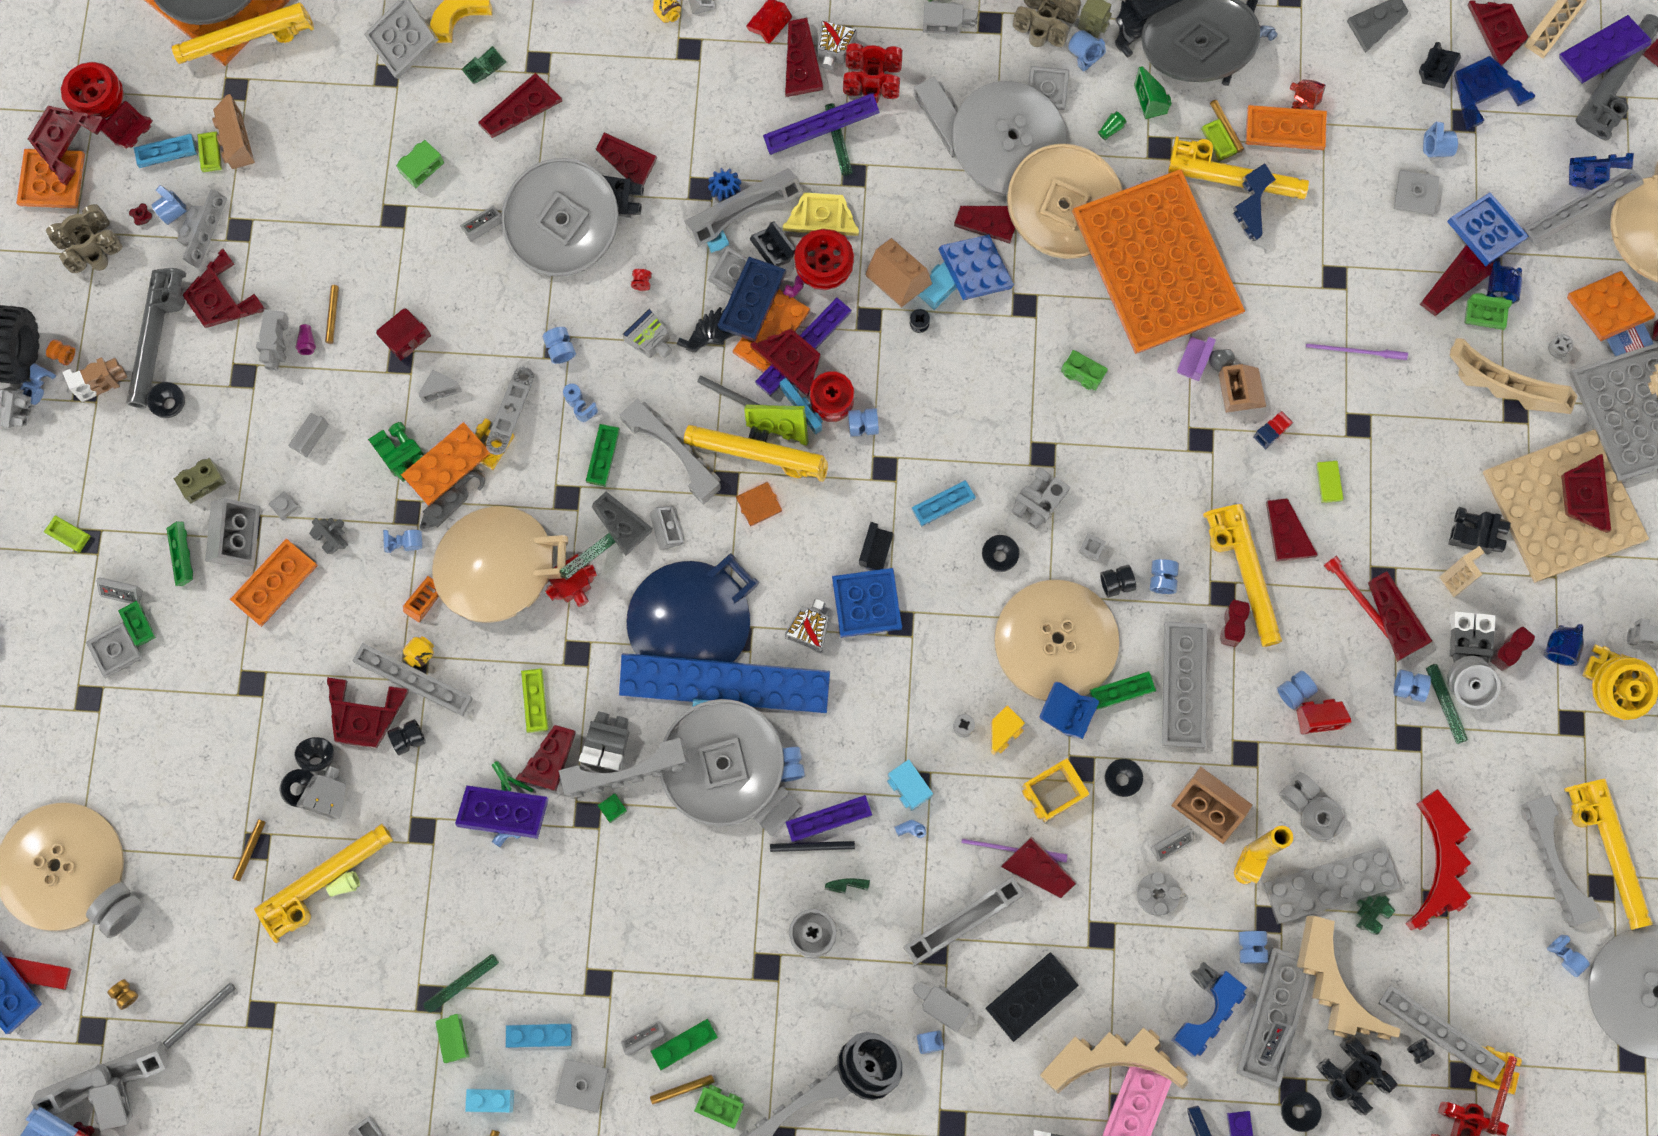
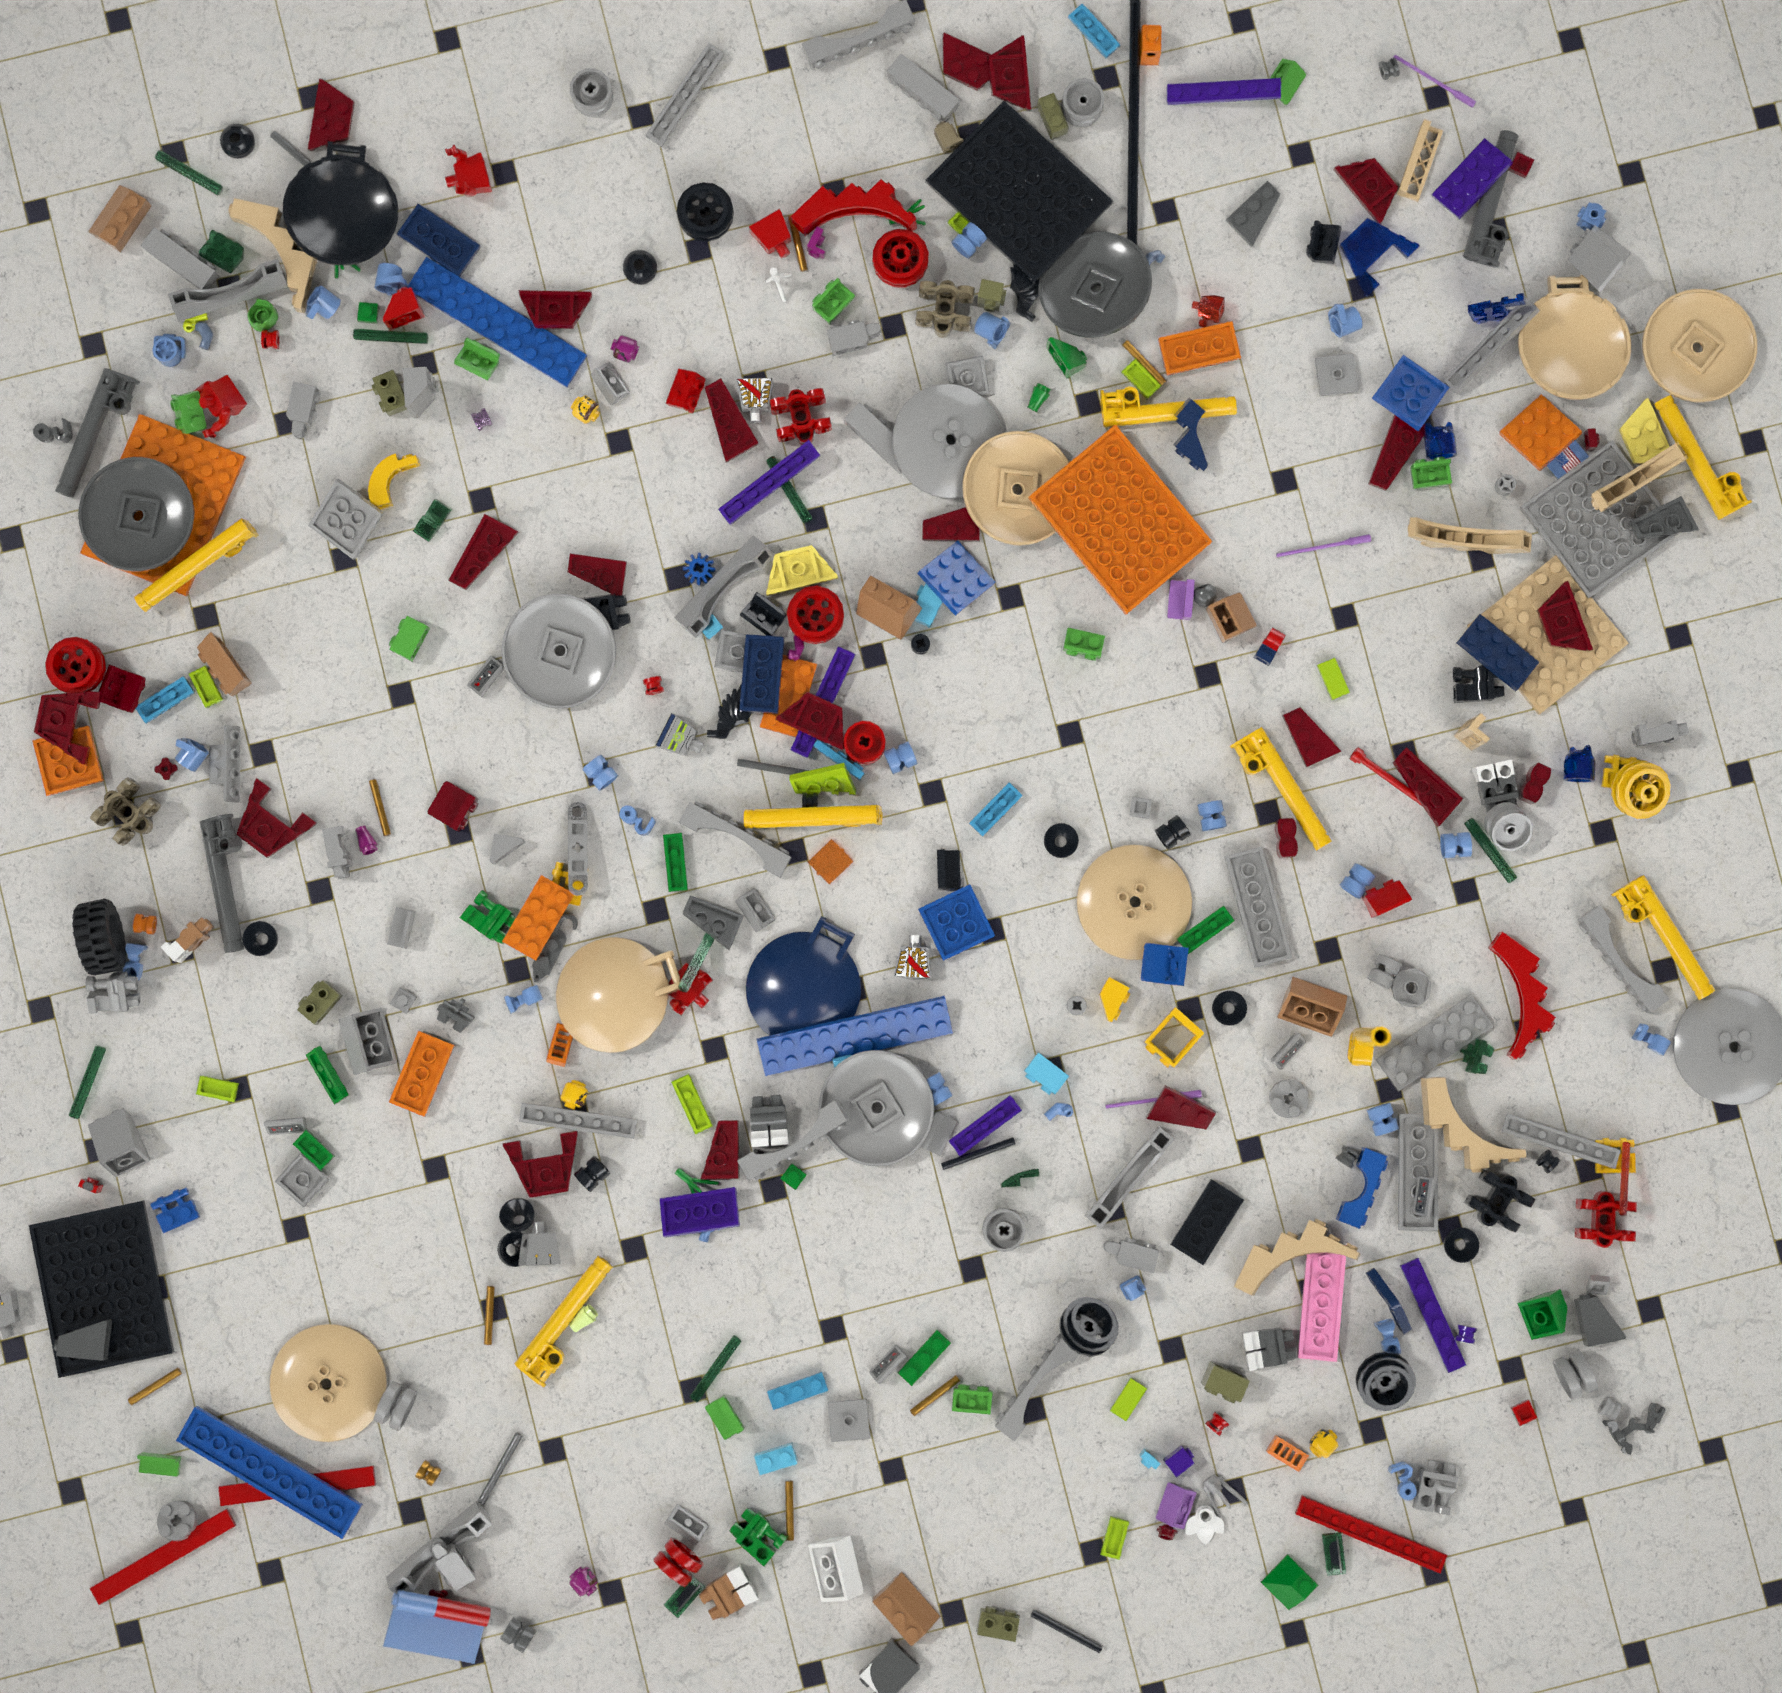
camera: 20 degrees left, 10 degrees up
(1039, 504) = (1080, 783): light grey hips -> none
(1509, 504) = (1497, 652): none -> dark blue plate

